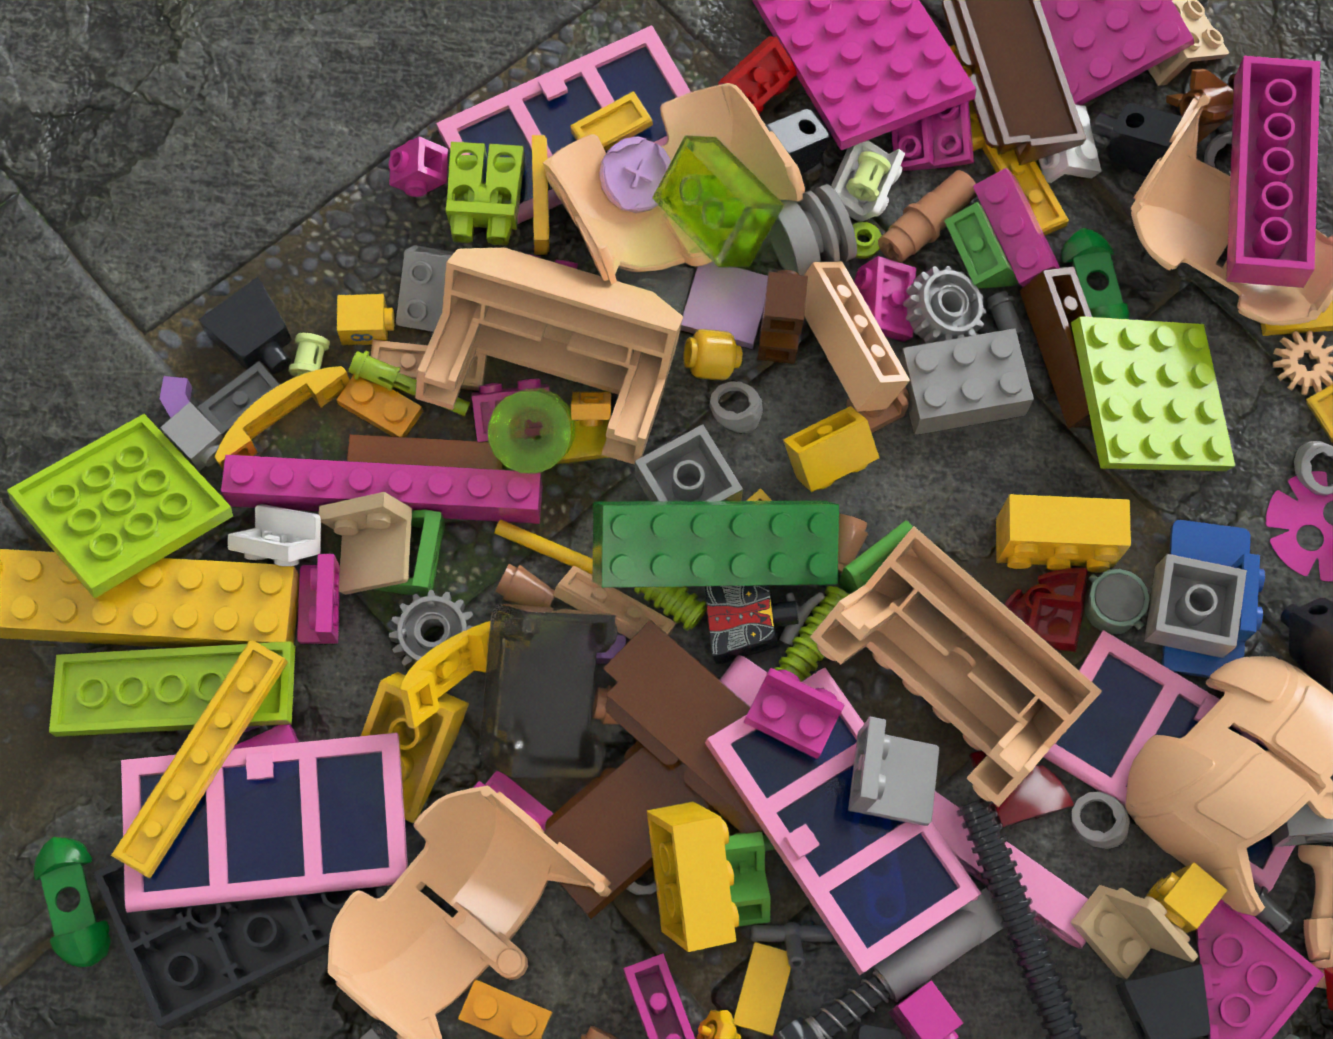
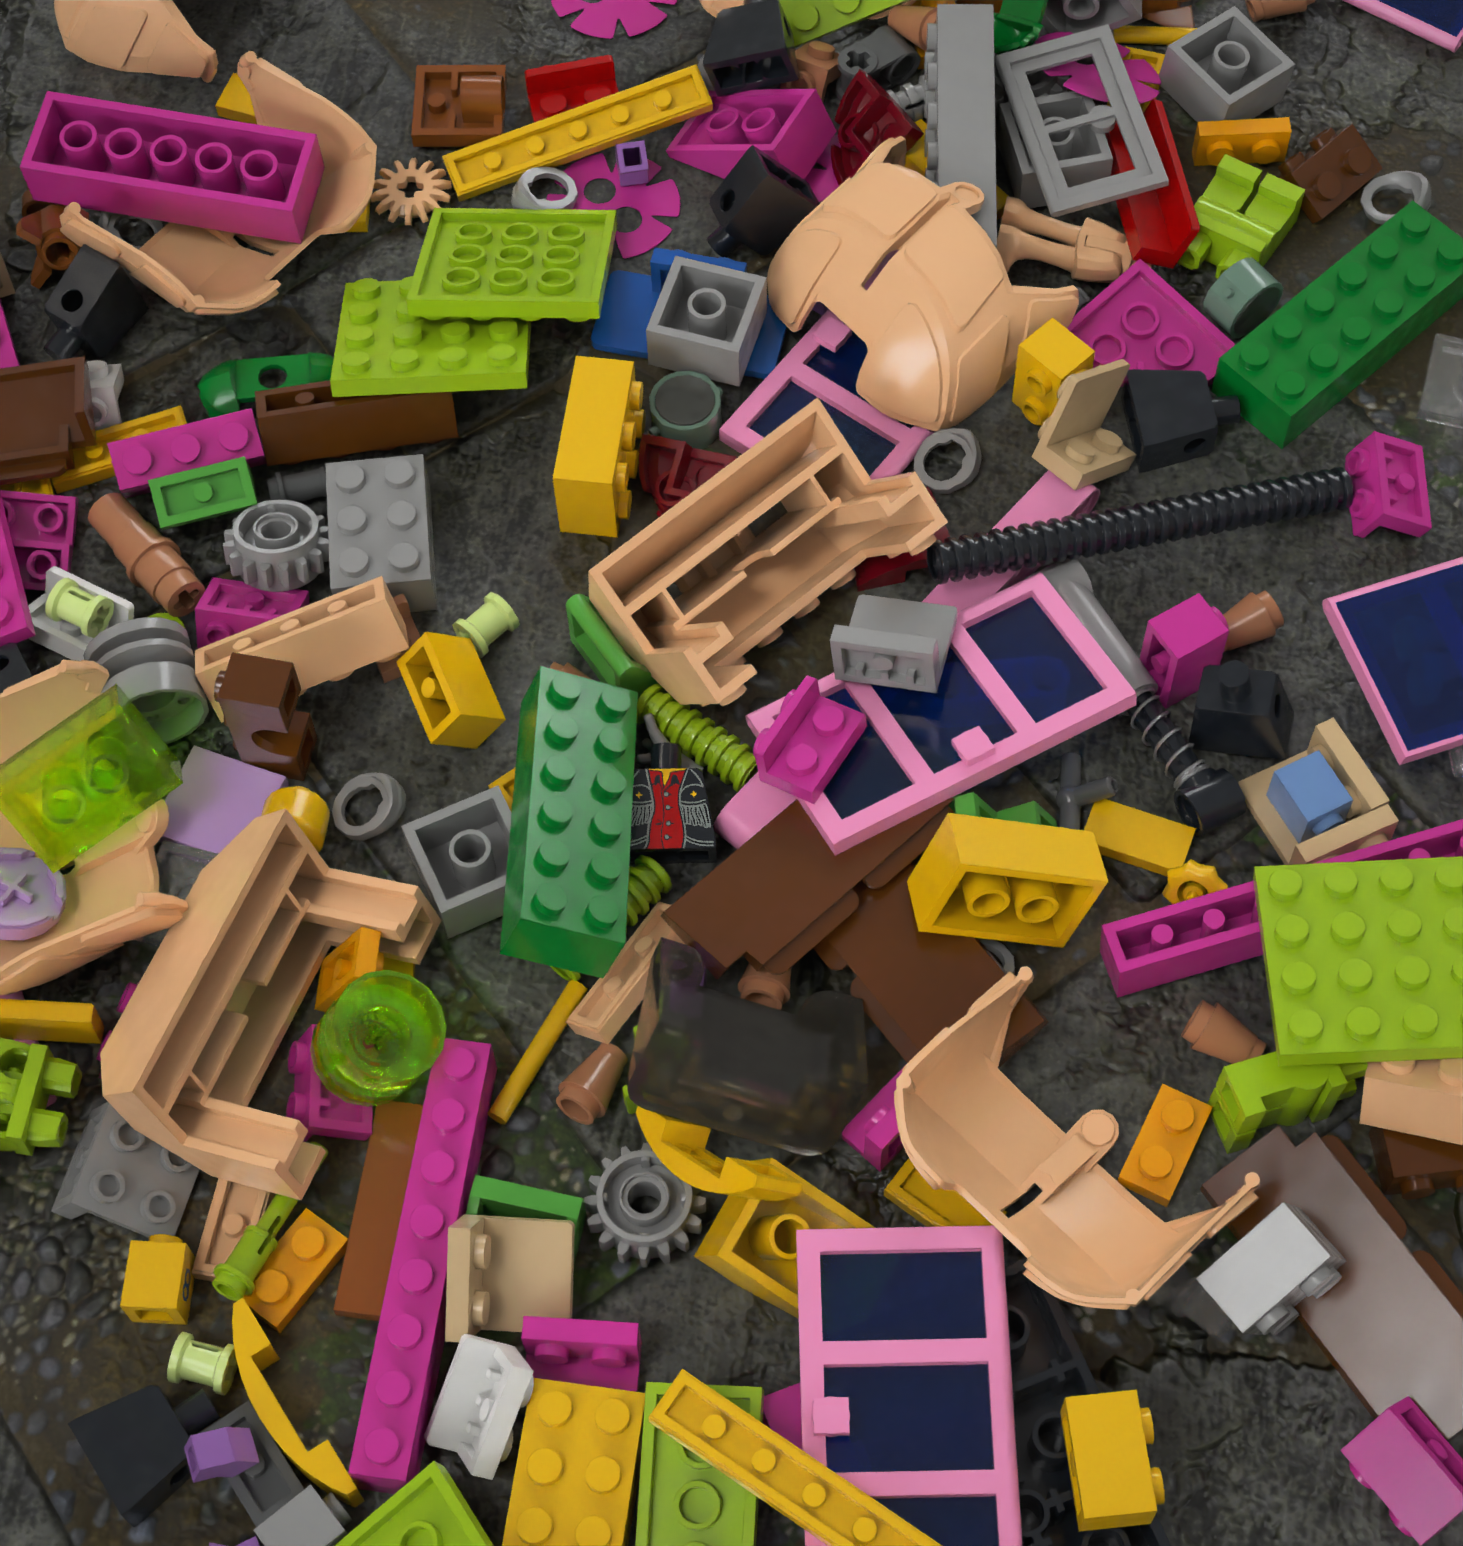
camera: 80 degrees left, 10 degrees down
(229, 964) = (1110, 1460): none -> yellow brick
(238, 374) = (220, 1453): none -> medium lavender piece
(897, 469) = (487, 623): none -> yellowish green bush
(1231, 447) = (513, 264): none -> lime plate

